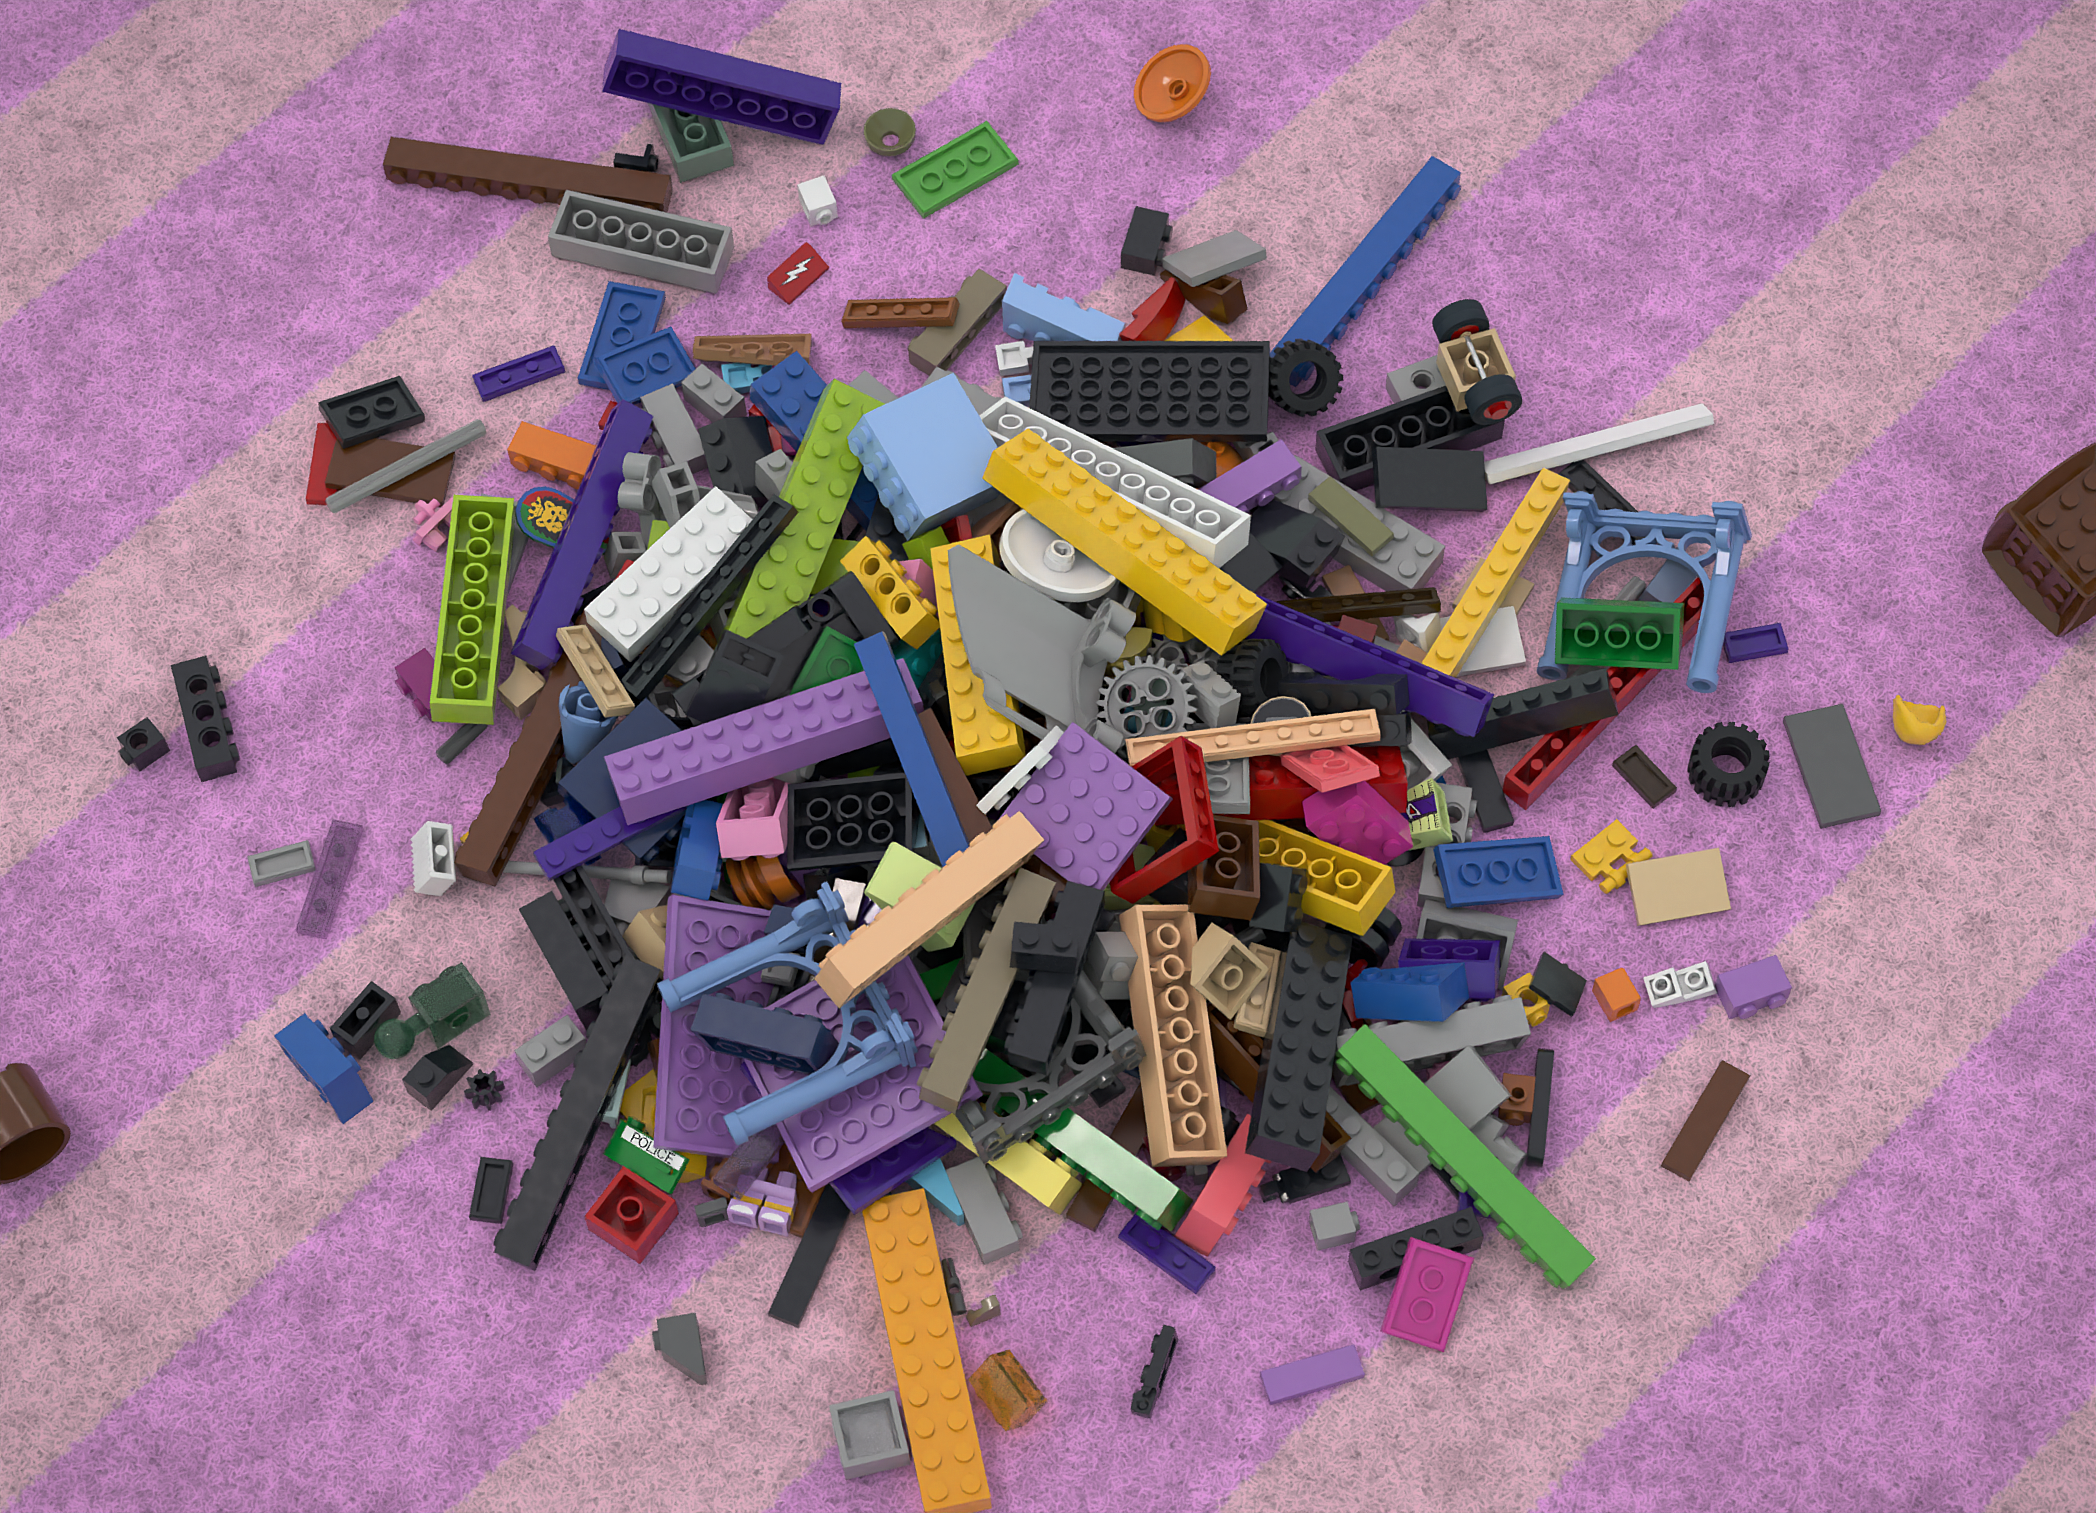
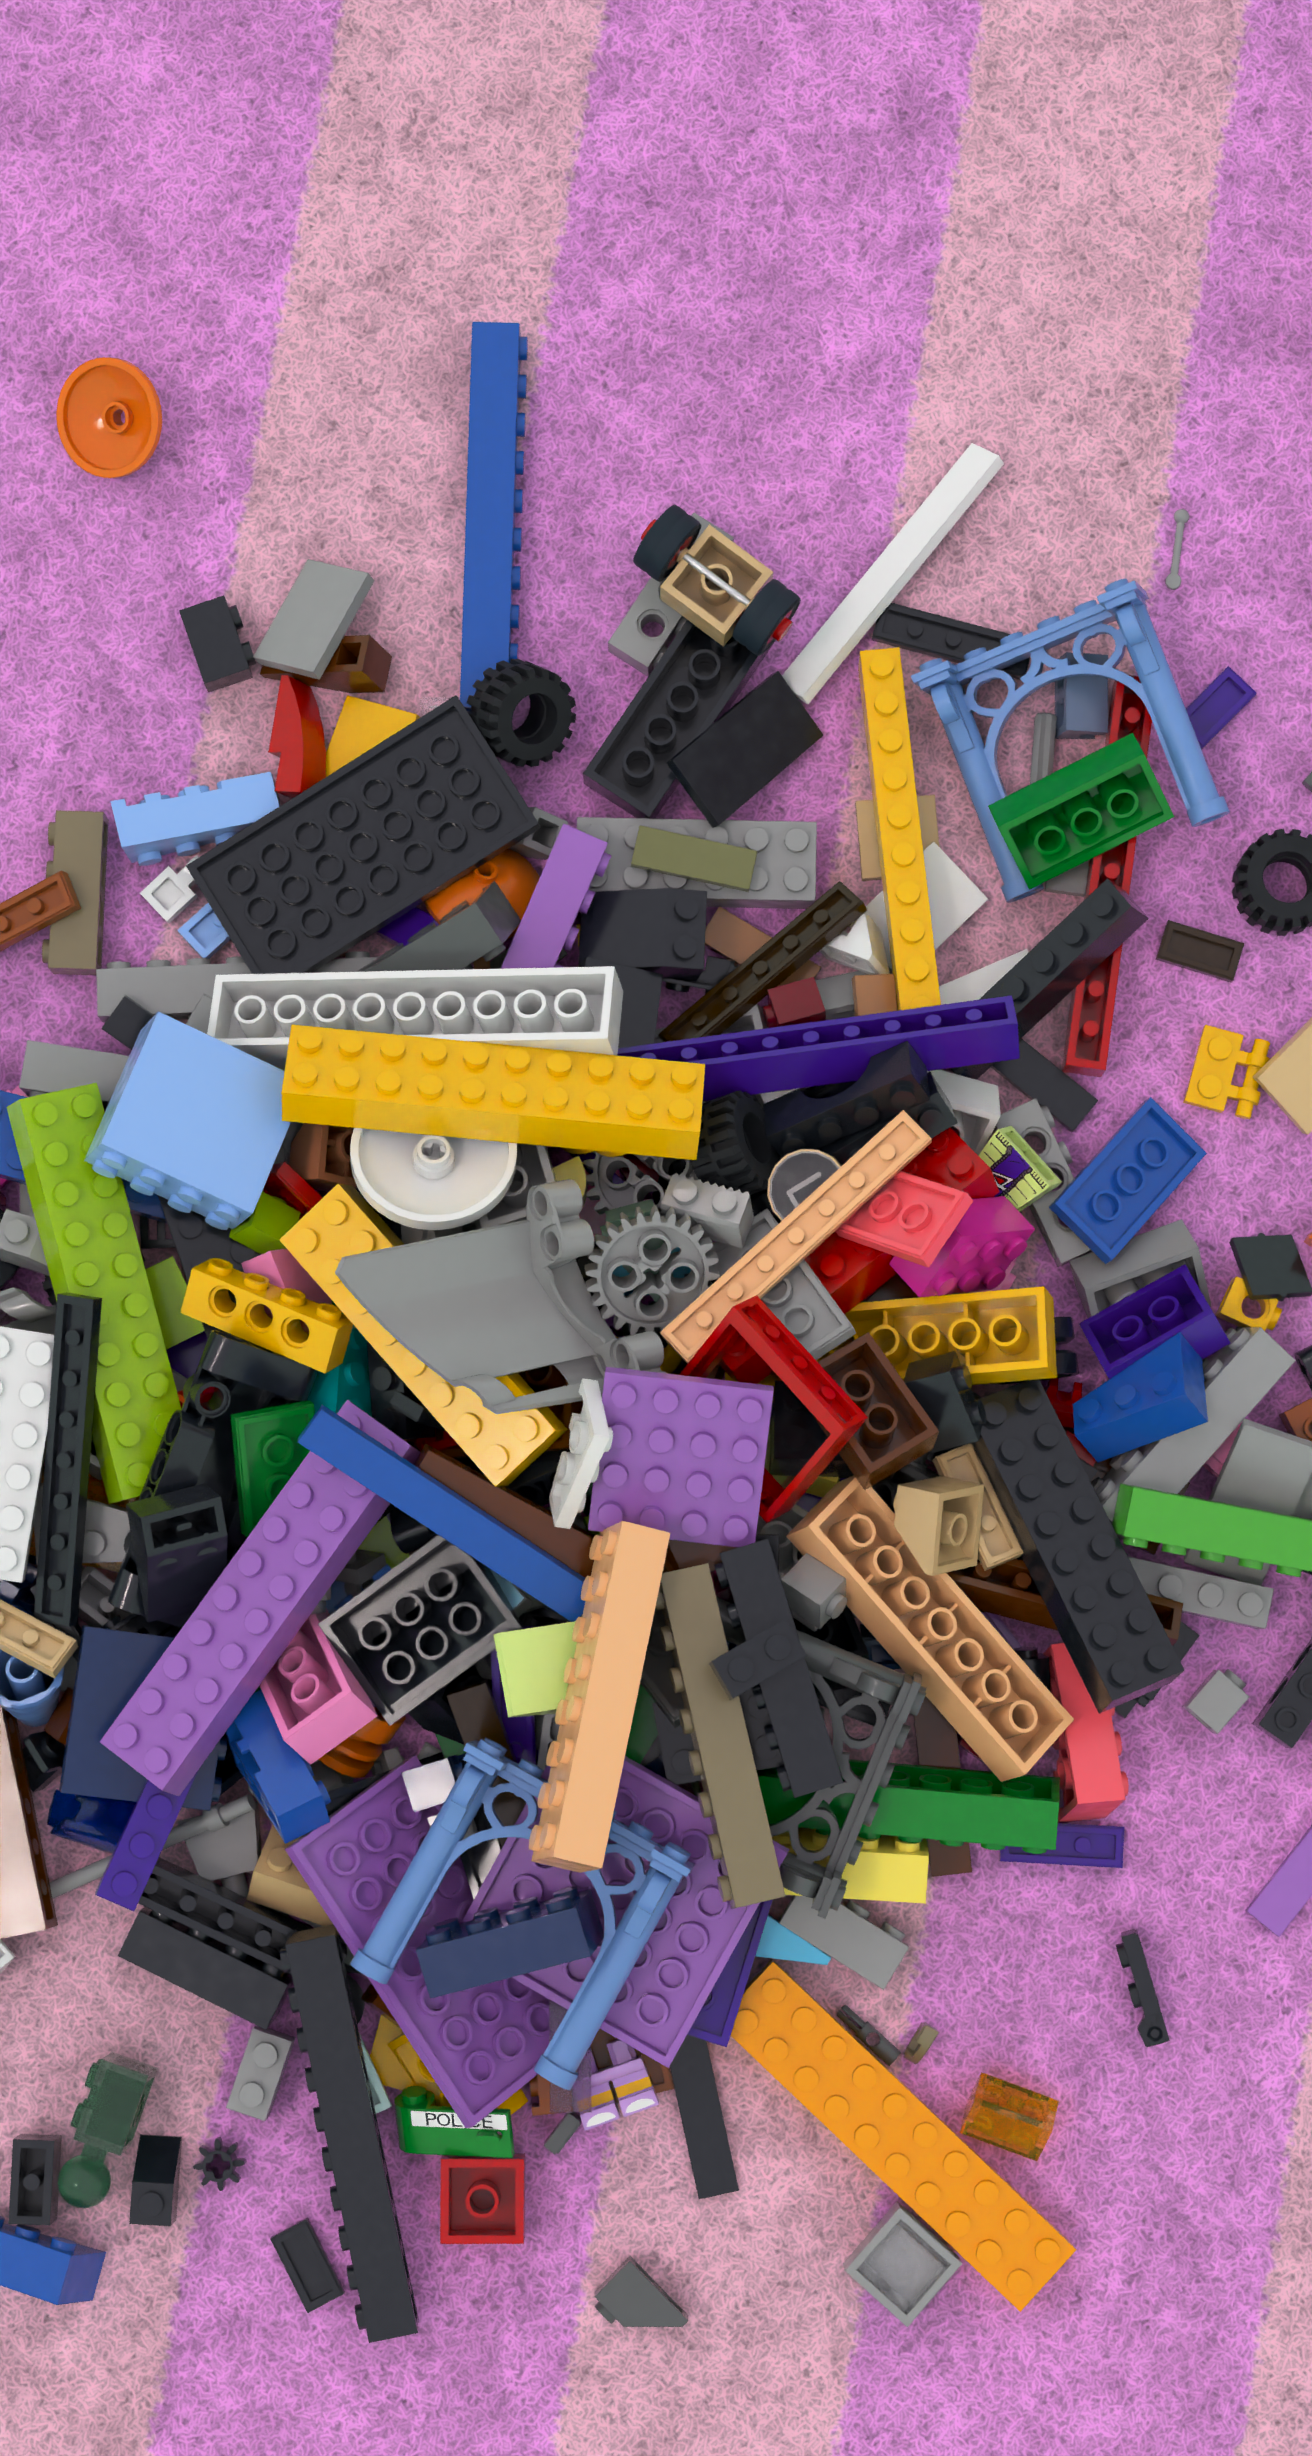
camera: 35 degrees left, 20 degrees up
(1779, 555) = (1173, 580): none -> light grey hinge

